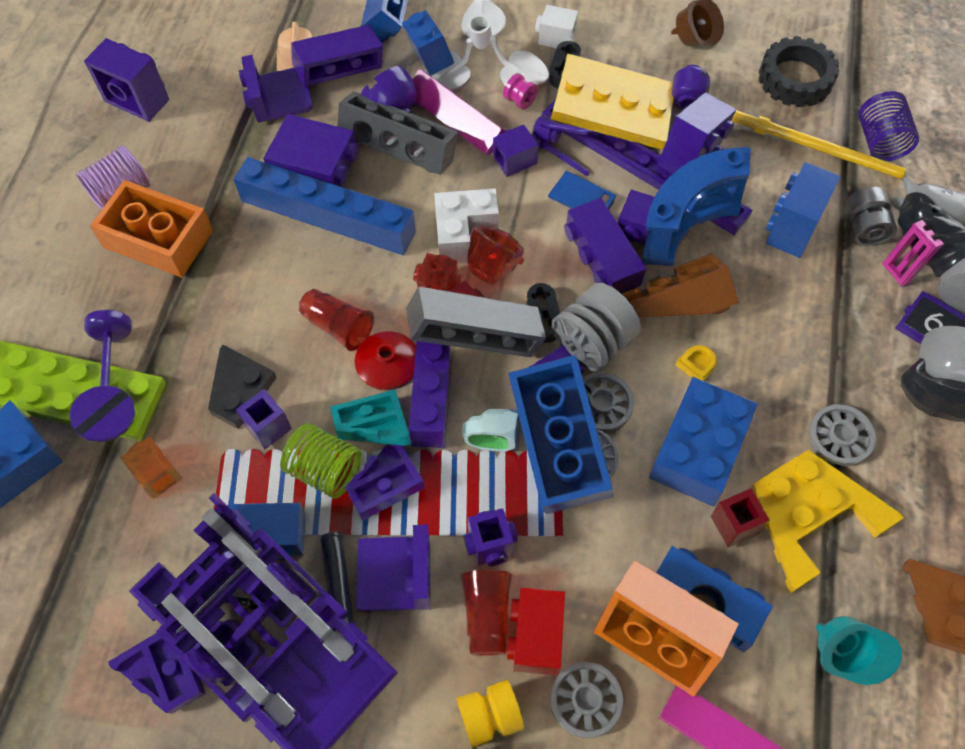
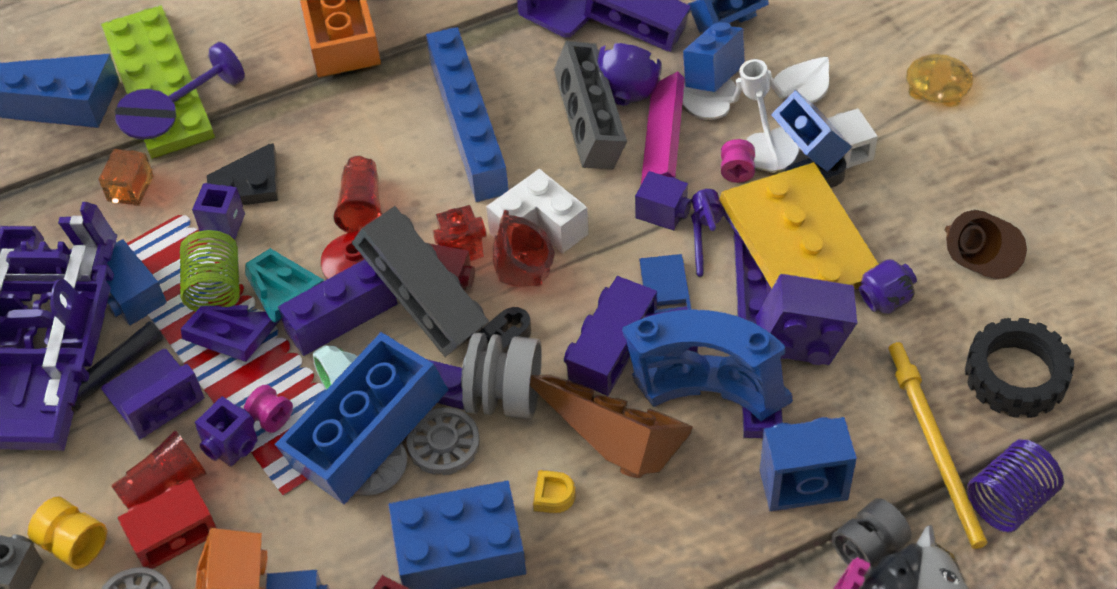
camera: 55 degrees right, 10 degrees down
(313, 149) = (508, 67): dark purple brick -> none
(487, 495) = (268, 408): none -> dark pink wheel
(547, 34) = (811, 131): none -> blue brick

